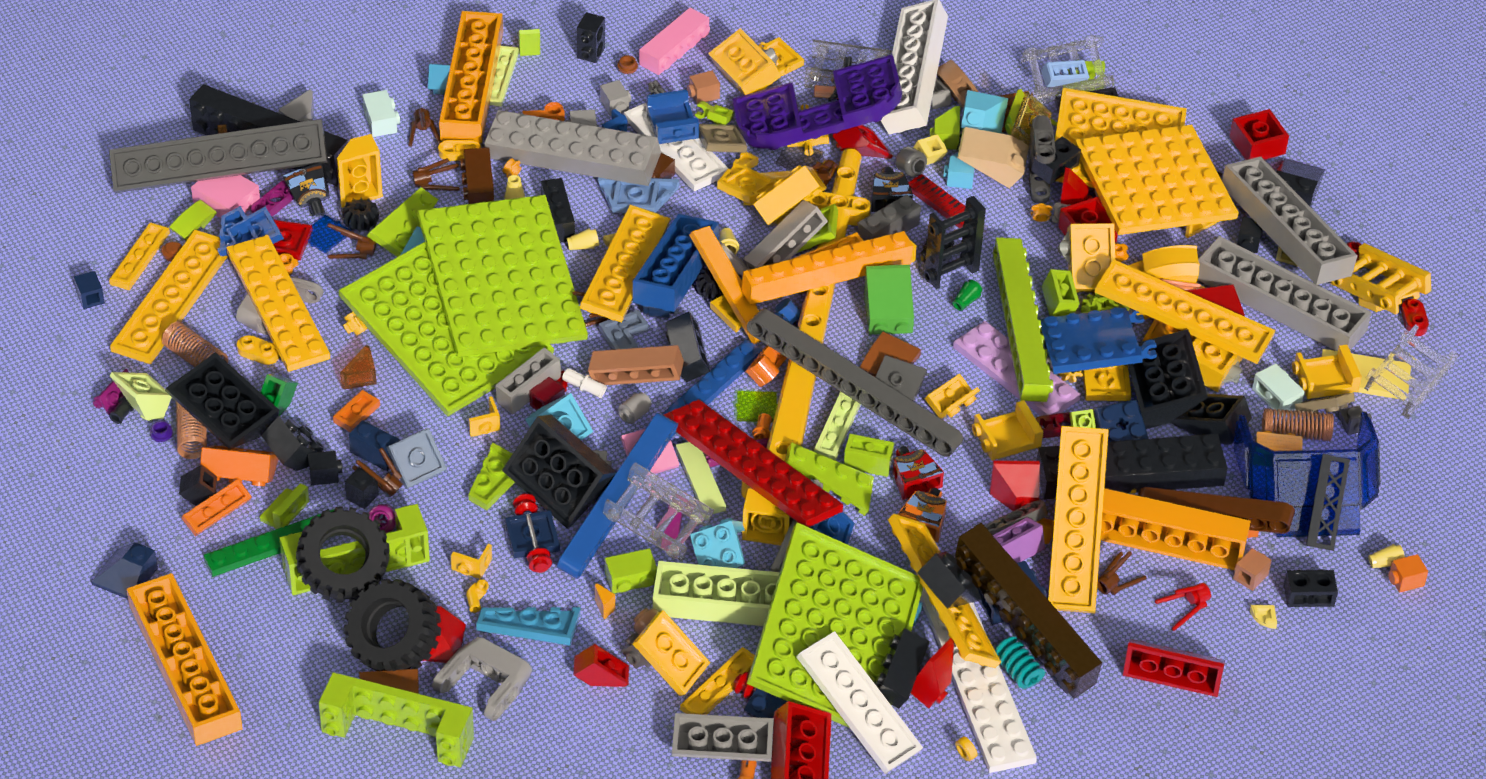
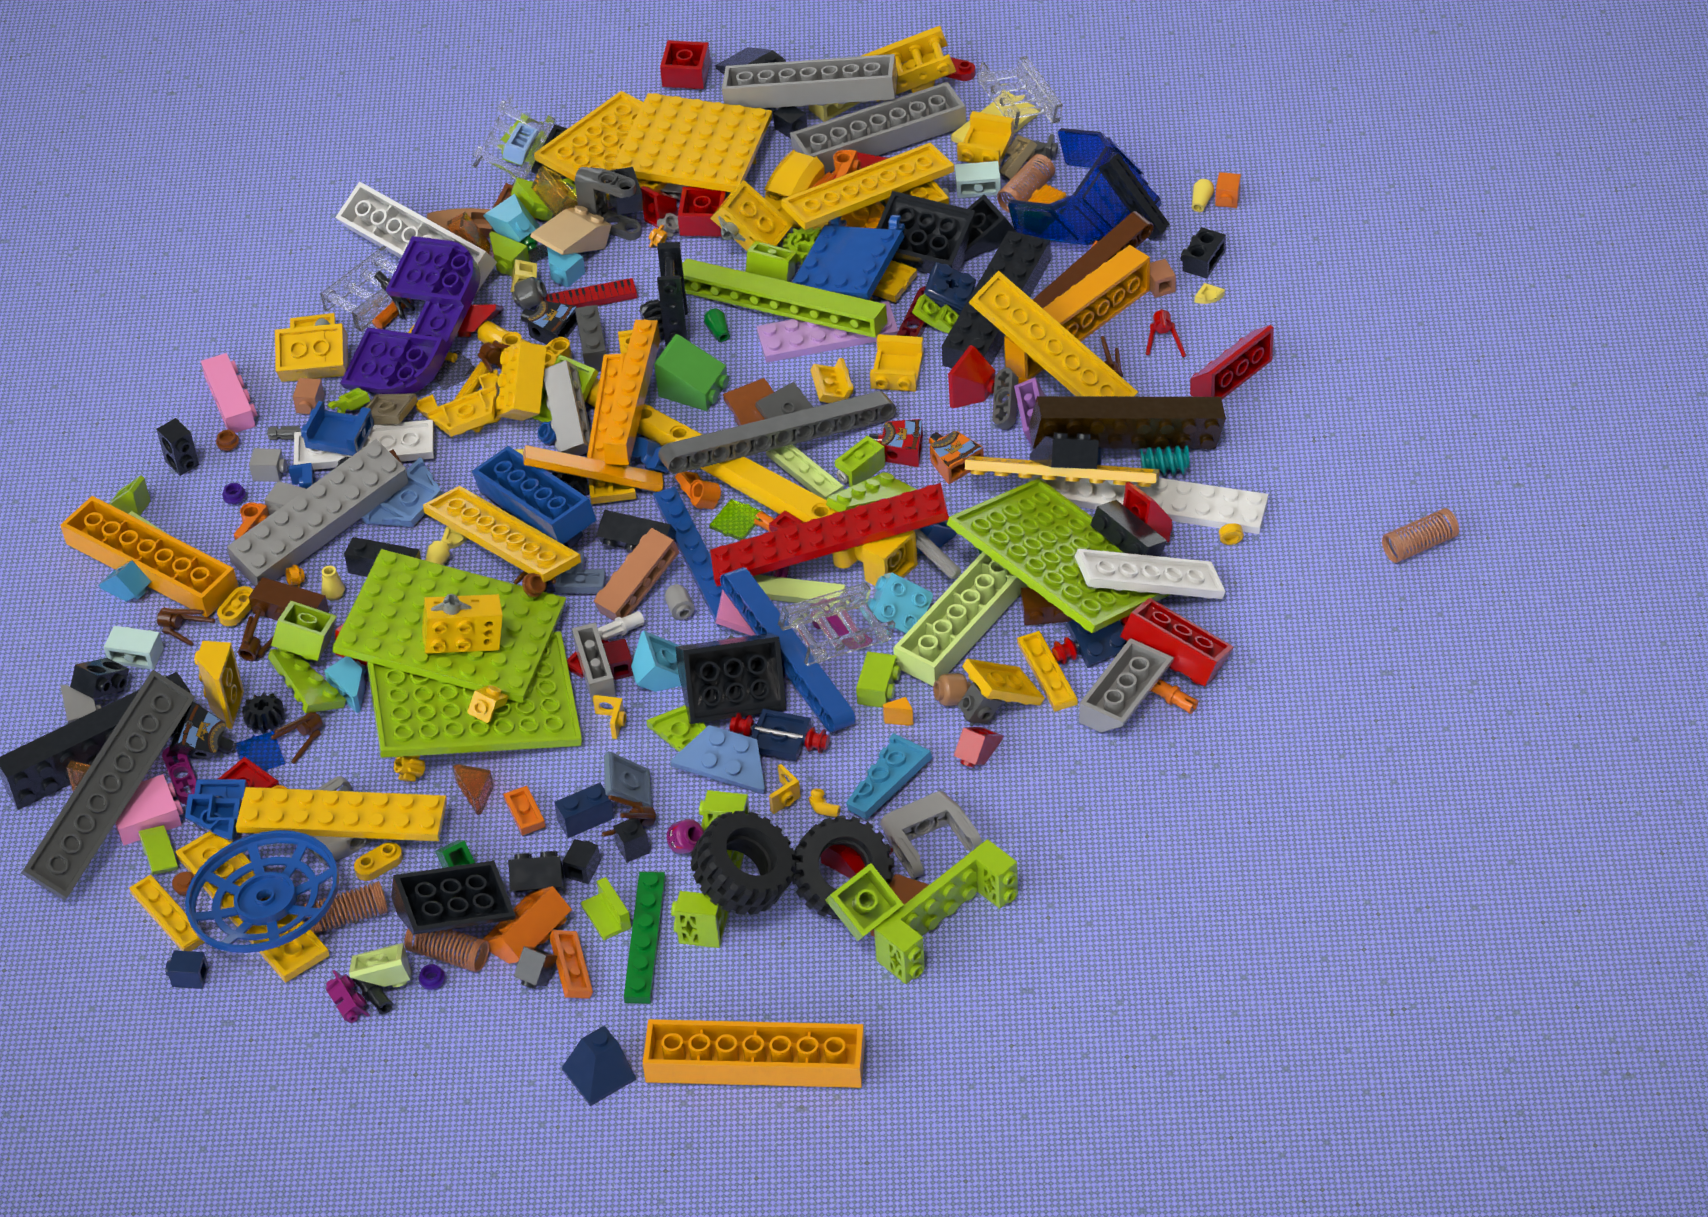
camera: 55 degrees left, 0 degrees up
(156, 293) = (261, 886): none -> blue dish
(331, 106) = (99, 677): none -> black brick
(353, 651) = (864, 902): none -> lime brick
(434, 330) = (486, 701): none -> yellow bracket
(445, 188) = (303, 631): none -> lime brick
(479, 507) = (724, 758): none -> medium blue wing
(484, 272) = (462, 623): none -> yellow piece
(572, 303) = (533, 585): none -> dark orange plate
(574, 94) = (233, 493): none -> dark purple plate
(759, 433) = (783, 520): none -> red plate
(940, 94) = (465, 228): none -> clear orange panel
(1206, 286) = (846, 162): none -> orange plate

